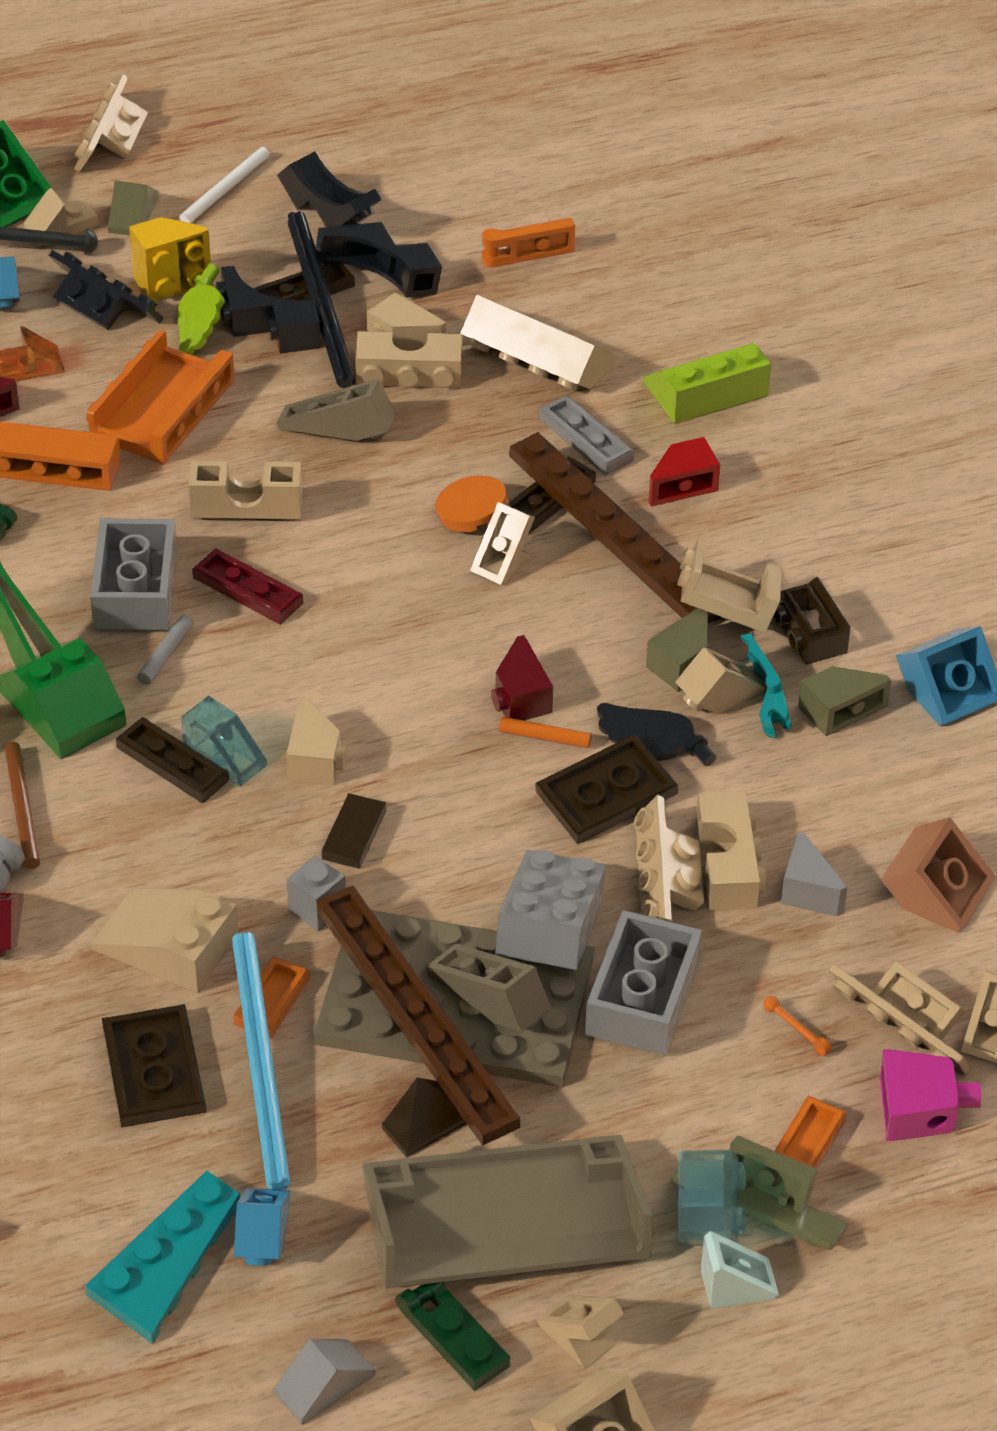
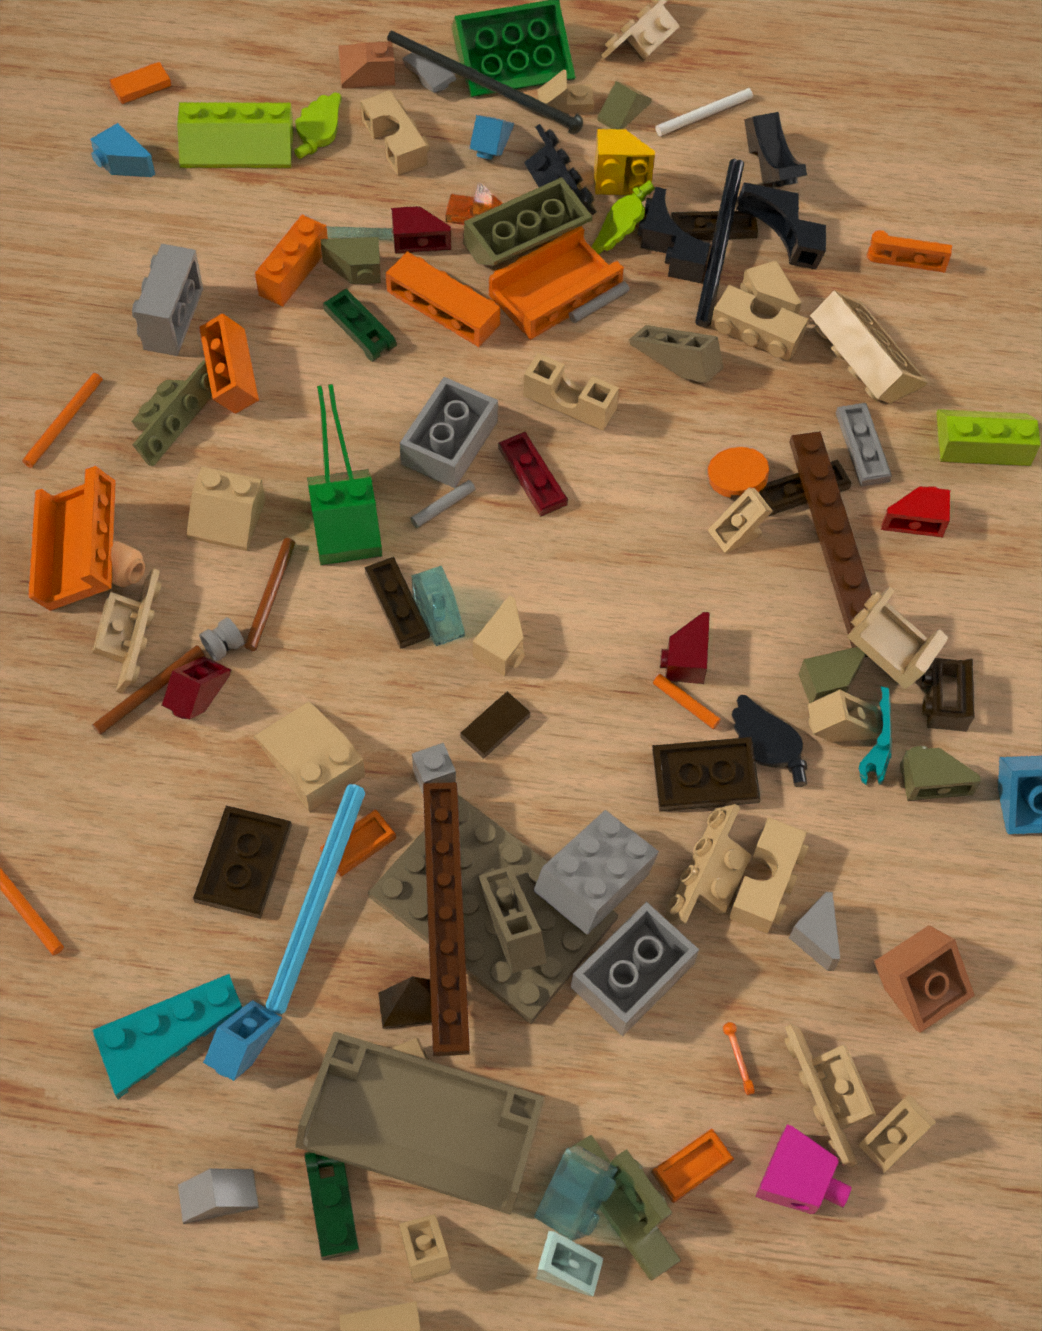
camera: 25 degrees right, 15 degrees up
(94, 349) = (524, 223): none -> olive slope
(220, 401) = (598, 302): none -> light grey piece

